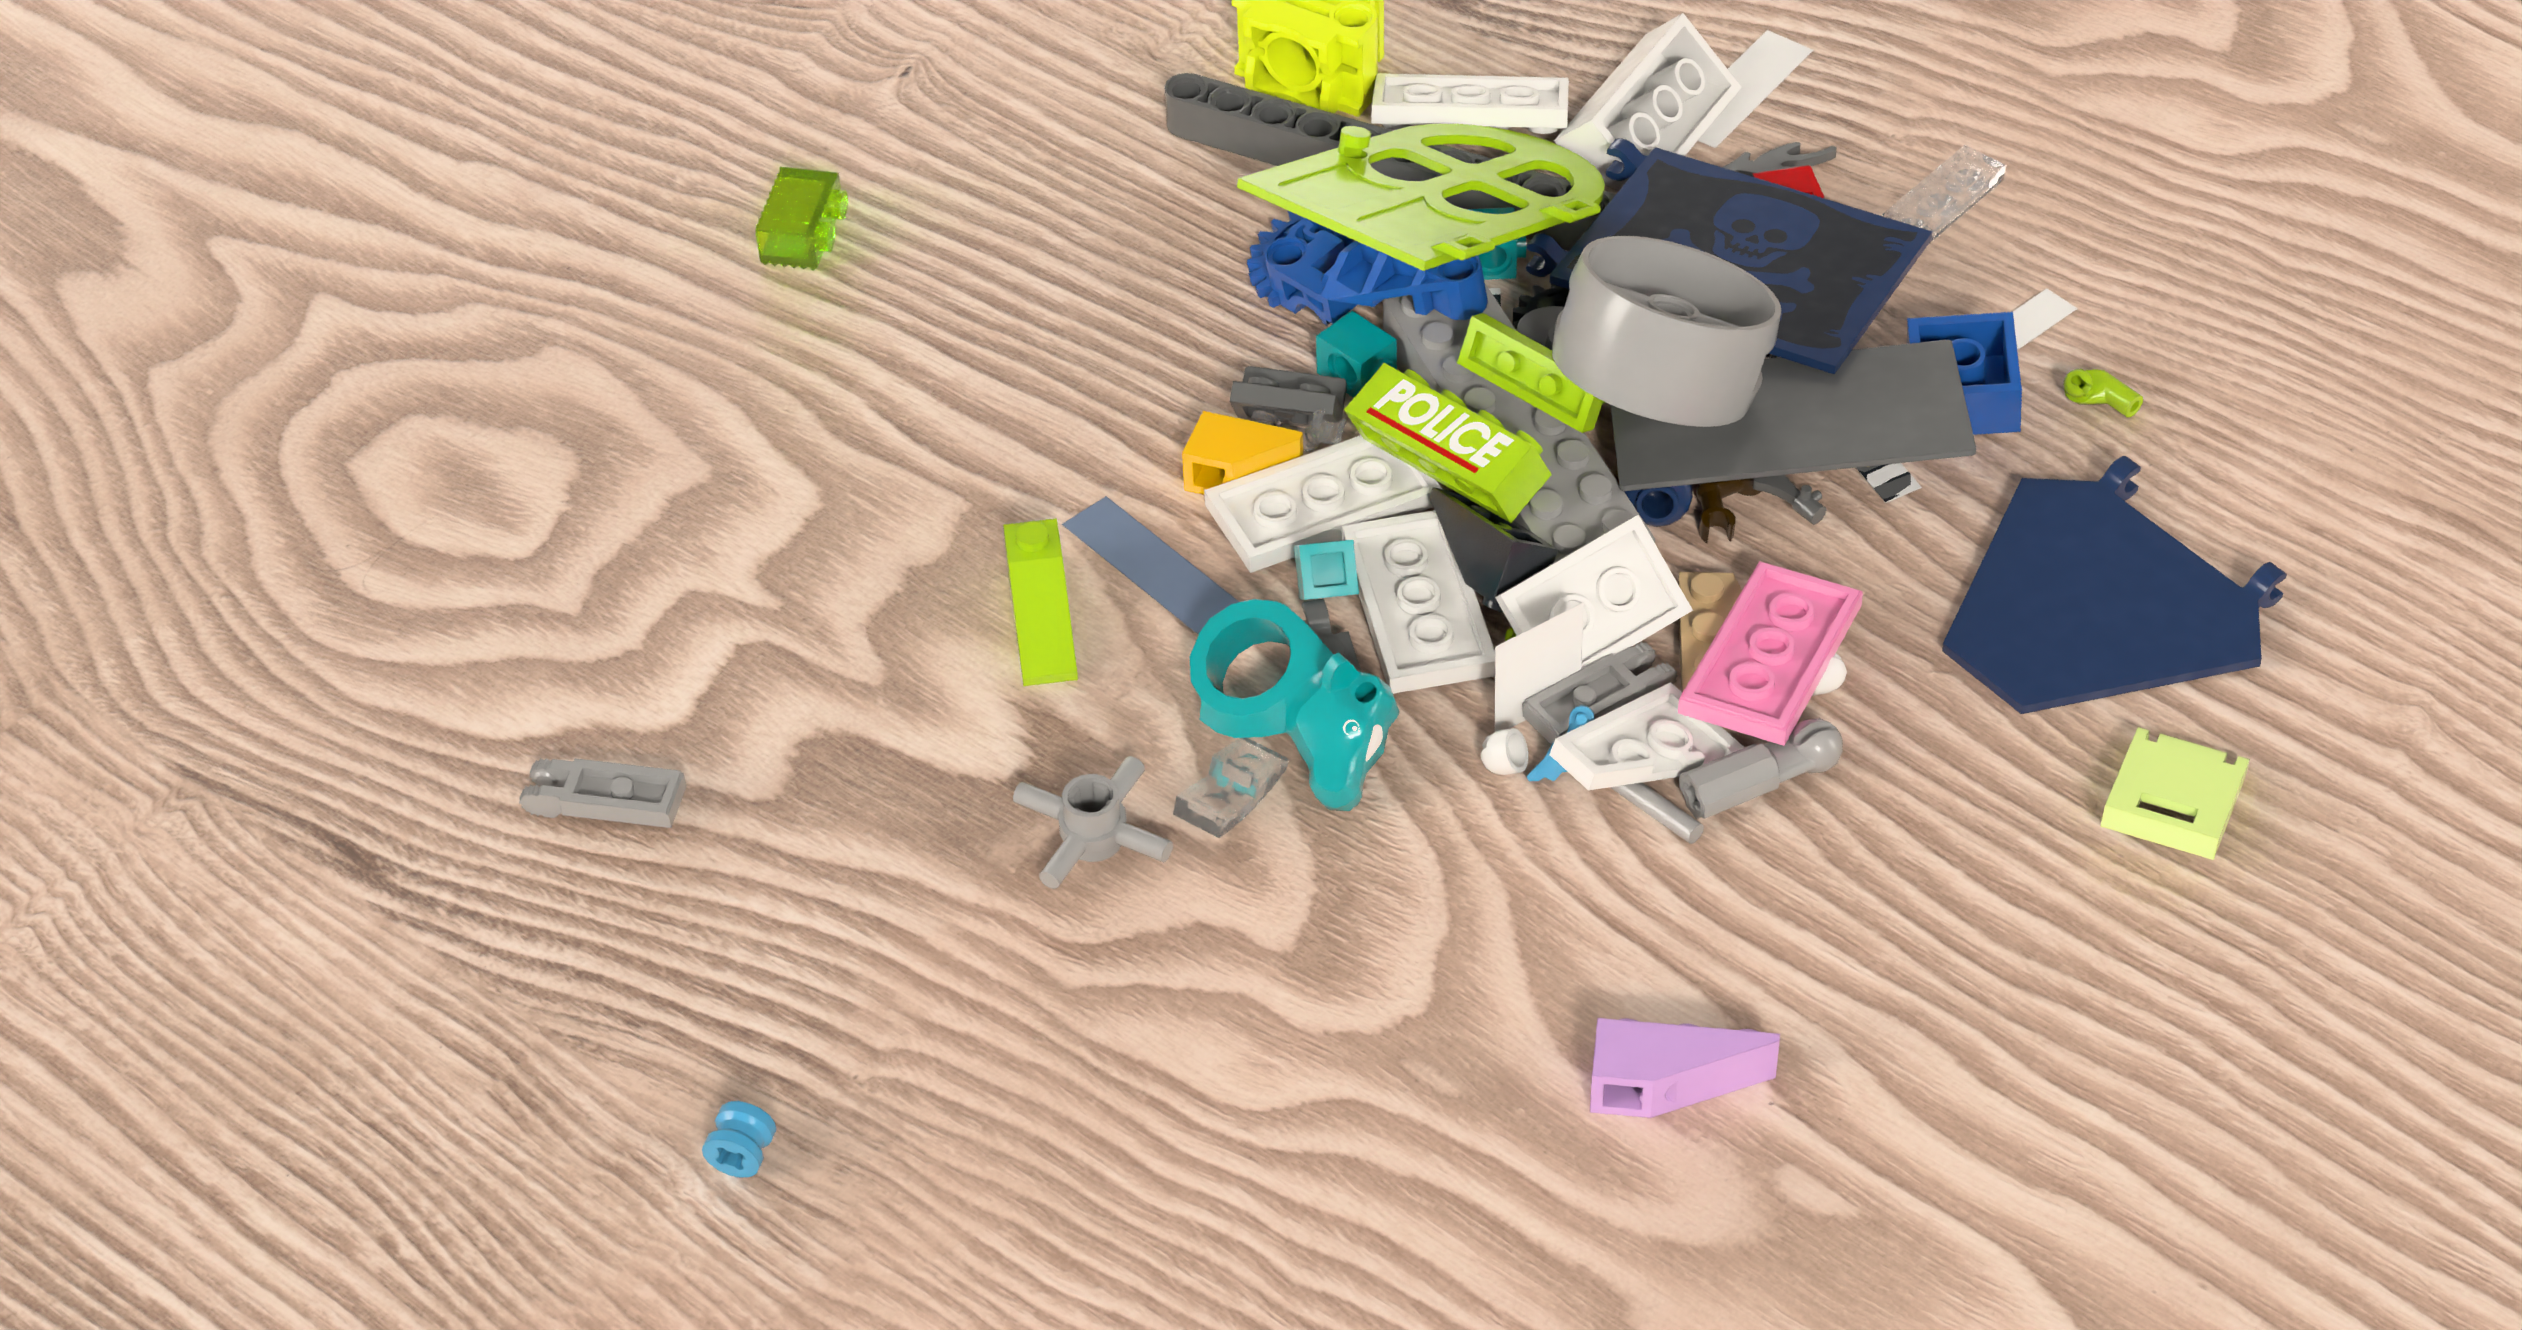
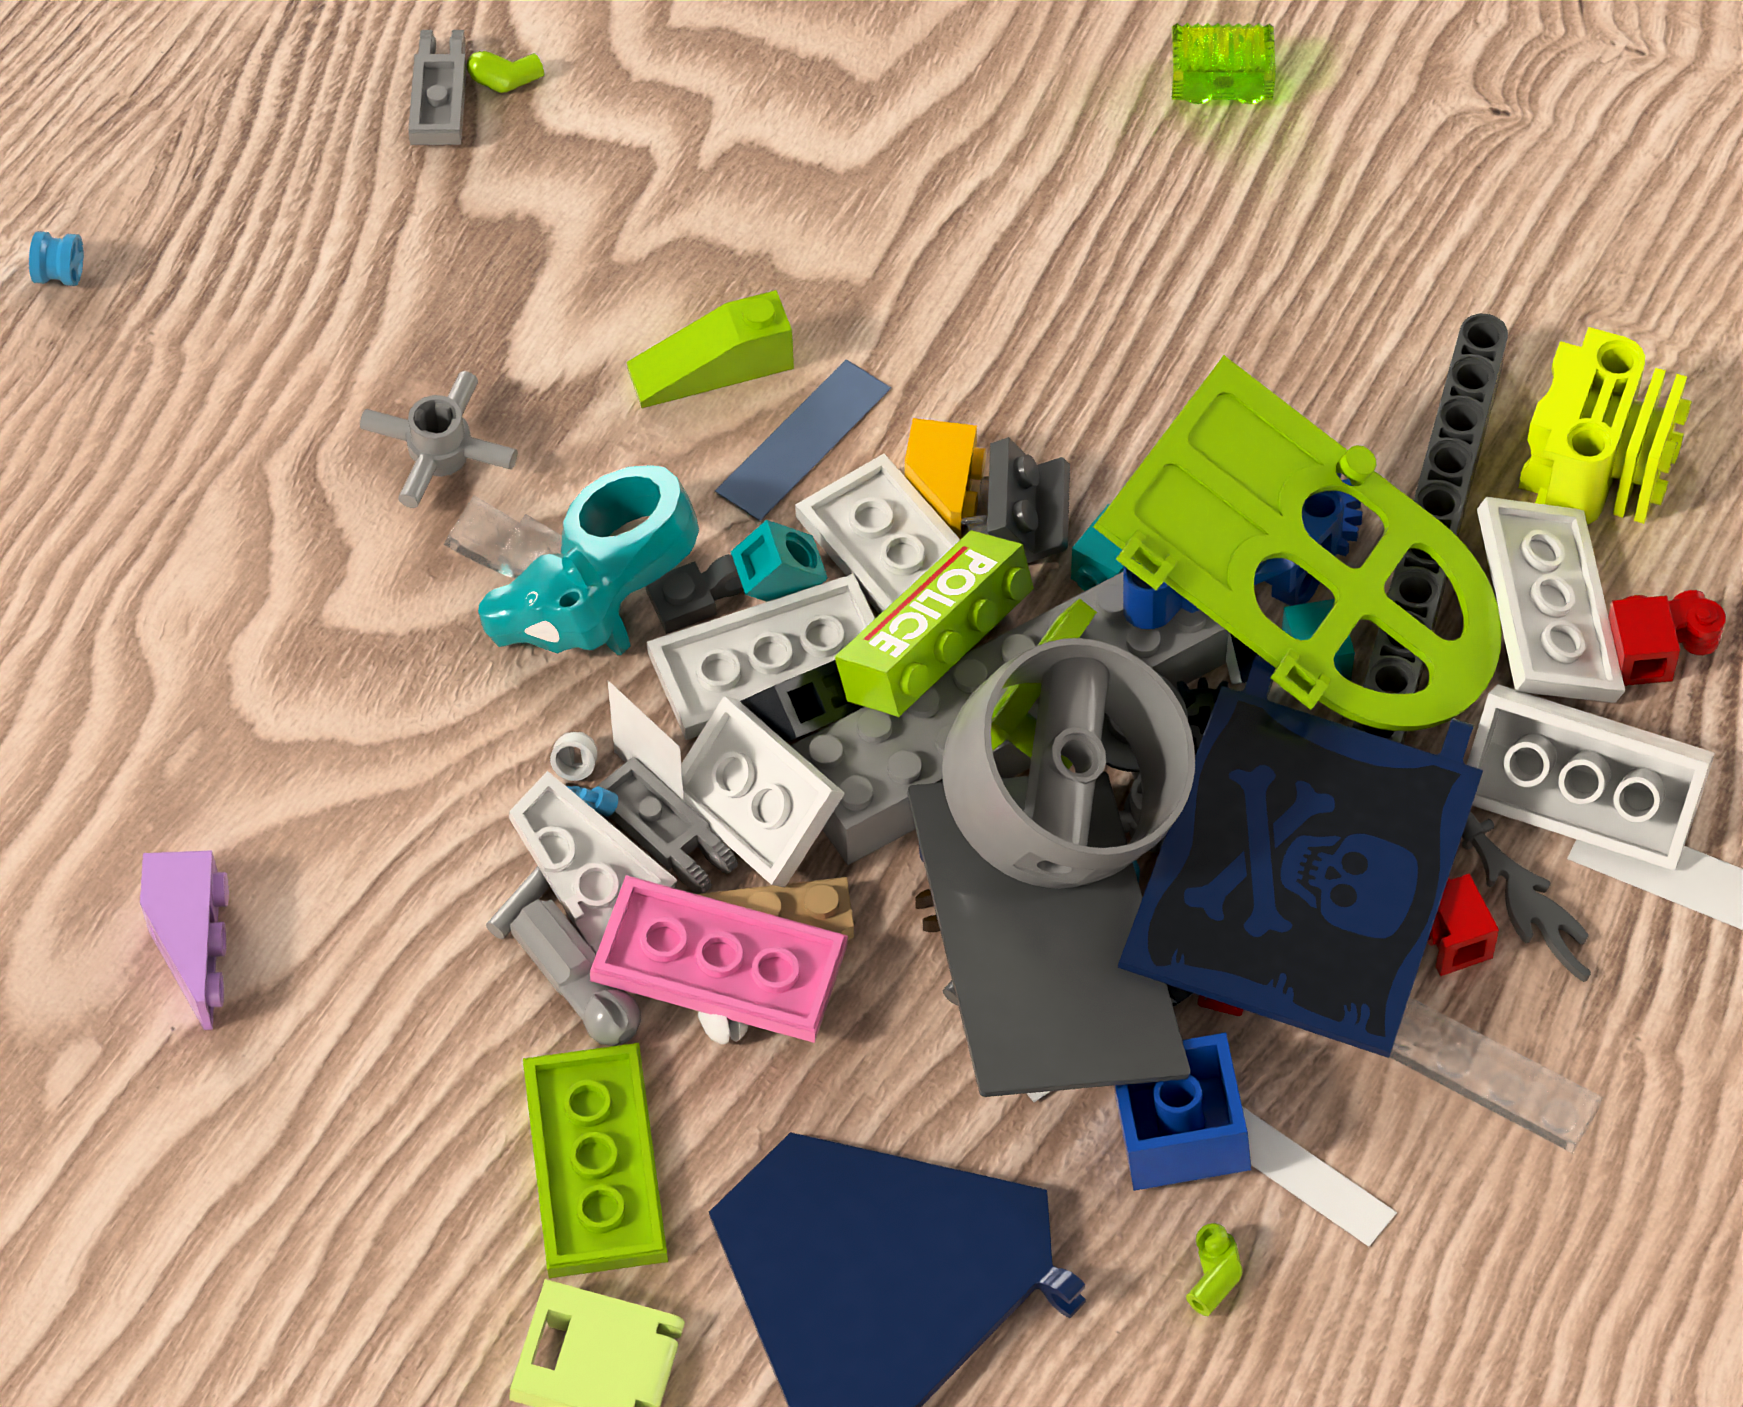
camera: 80 degrees right, 10 degrees up
(604, 738) = (503, 74): none -> lime arm
(1515, 46) = (1652, 627): none -> red brick
(1959, 783) = (594, 1161): none -> lime tile

